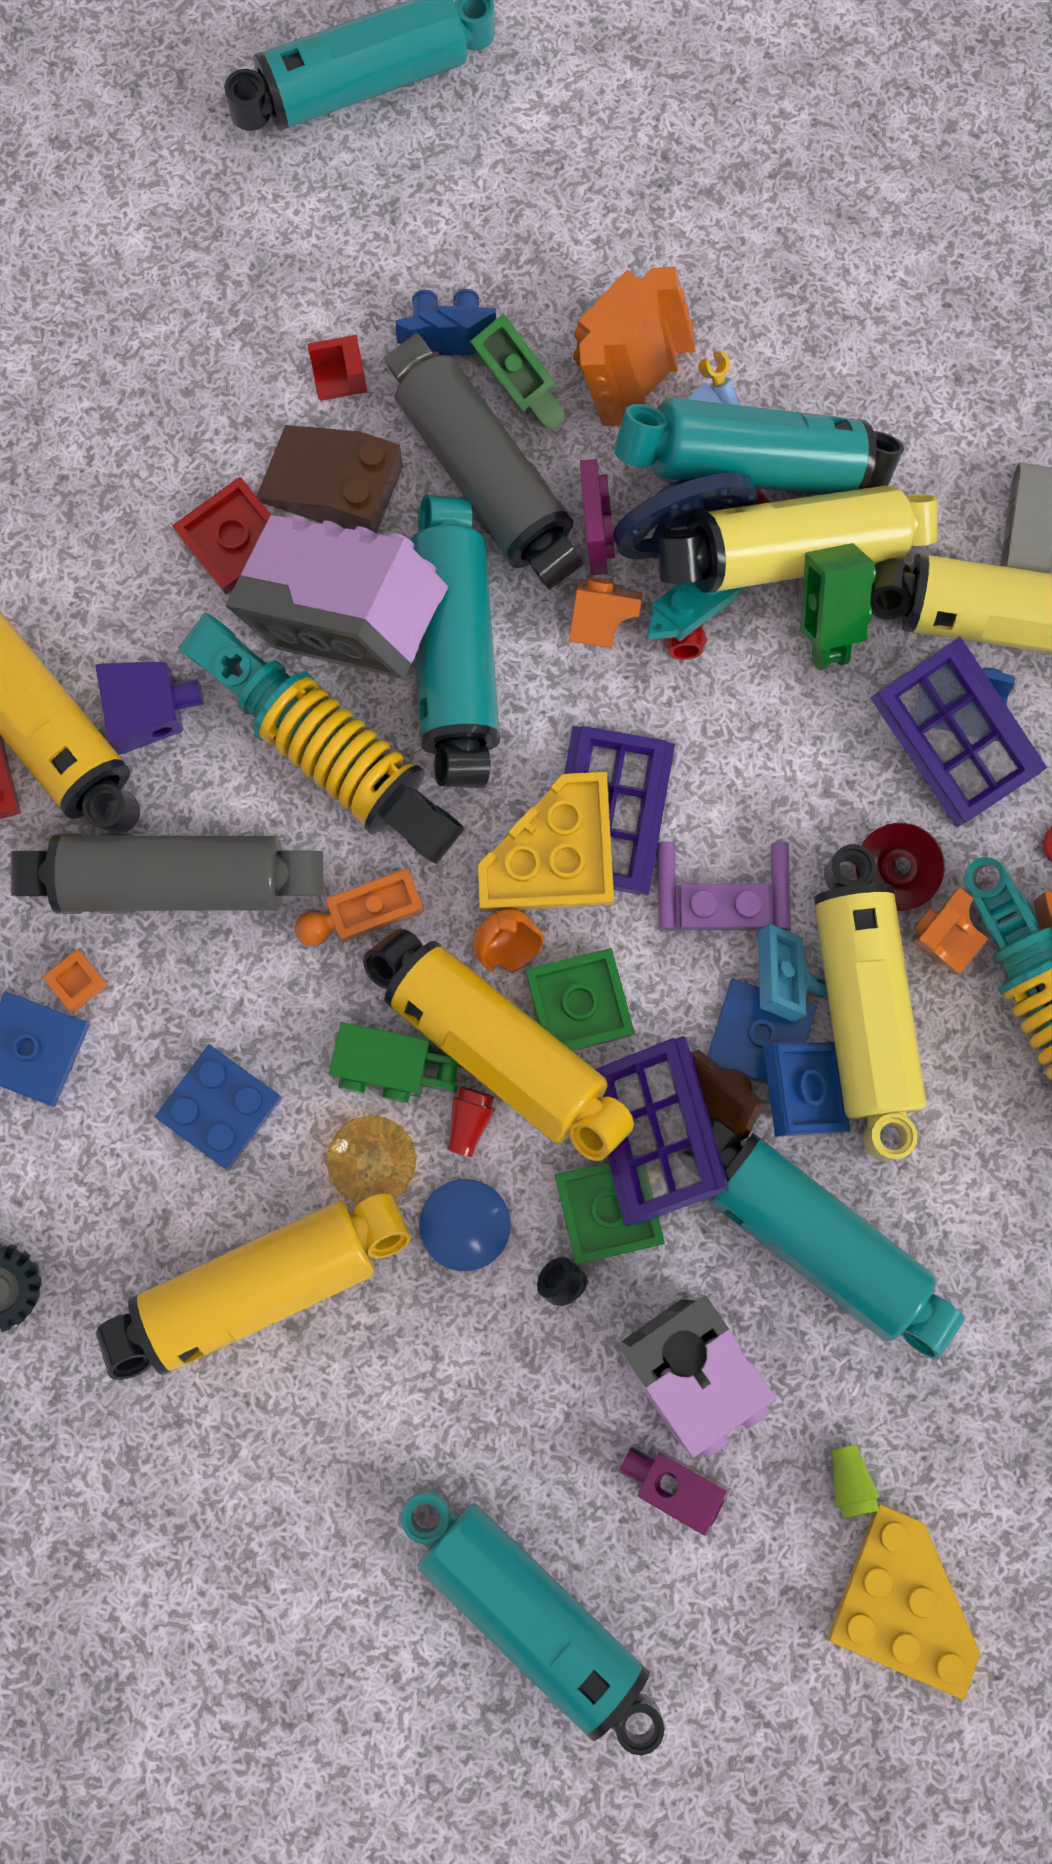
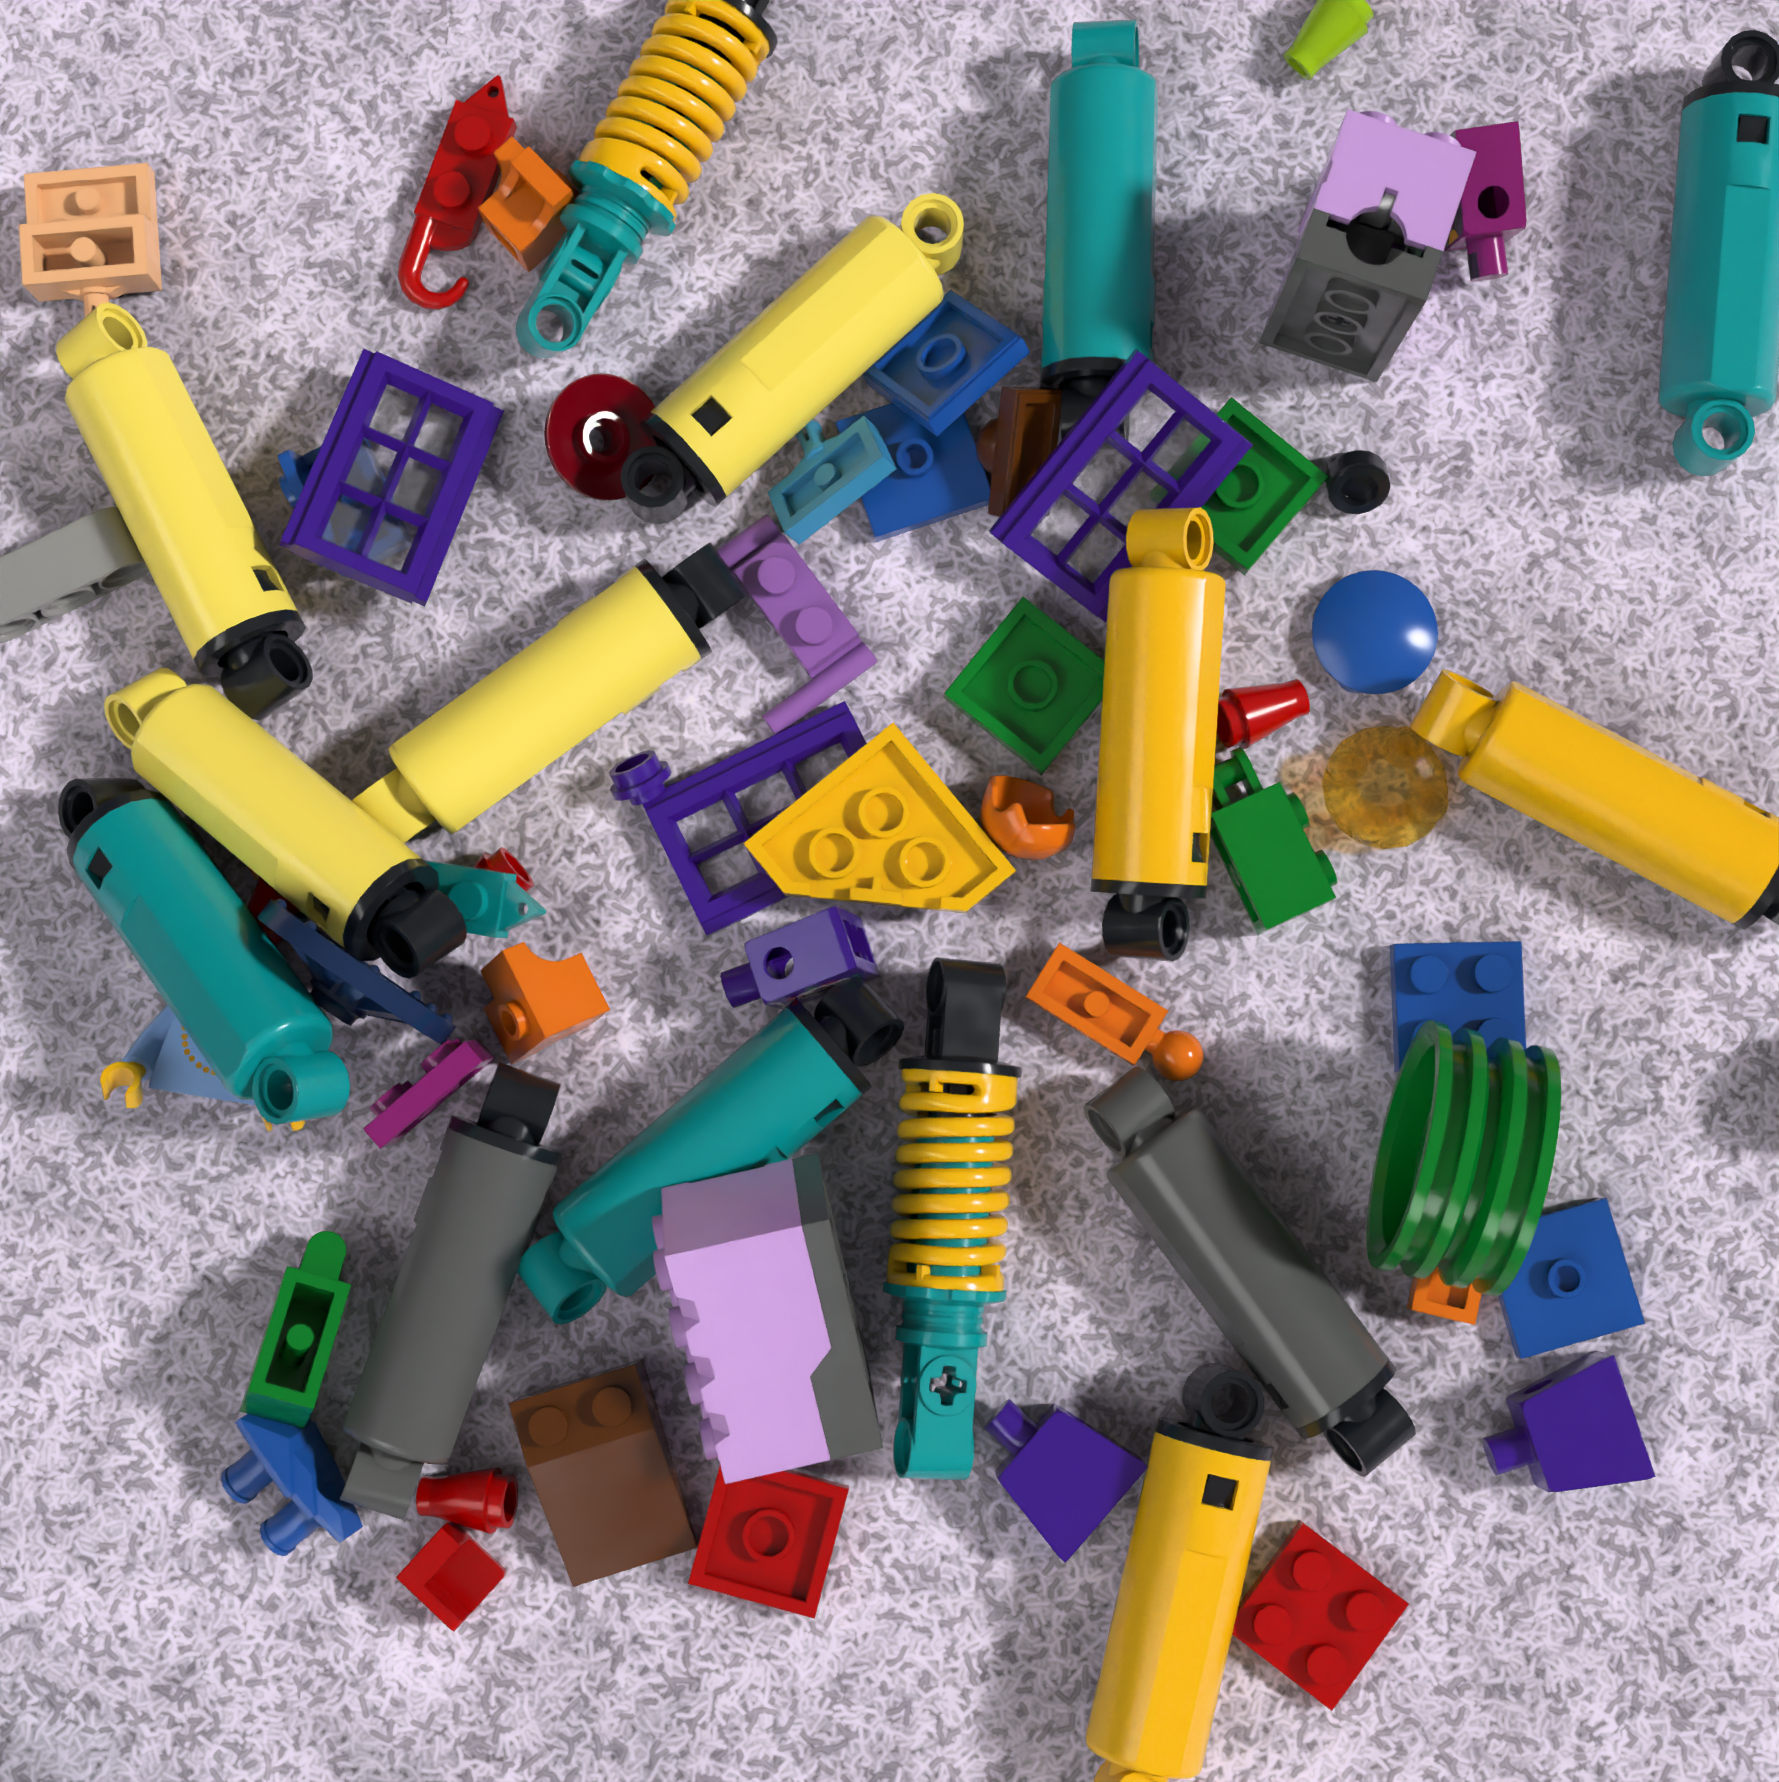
camera: 125 degrees left, 5 degrees up
(128, 1021) = (1464, 1158): none -> green wheel
(367, 404) = (470, 1499): none -> red cone
(516, 762) = (823, 950): none -> dark purple torso
(633, 340) = (155, 1218): orange slope -> none
(687, 750) = (639, 778): none -> dark purple plate
(767, 731) = (552, 695): none -> light yellow piece
(836, 602) = (333, 720): green brick -> none
(950, 933) = (644, 331): orange brick -> none

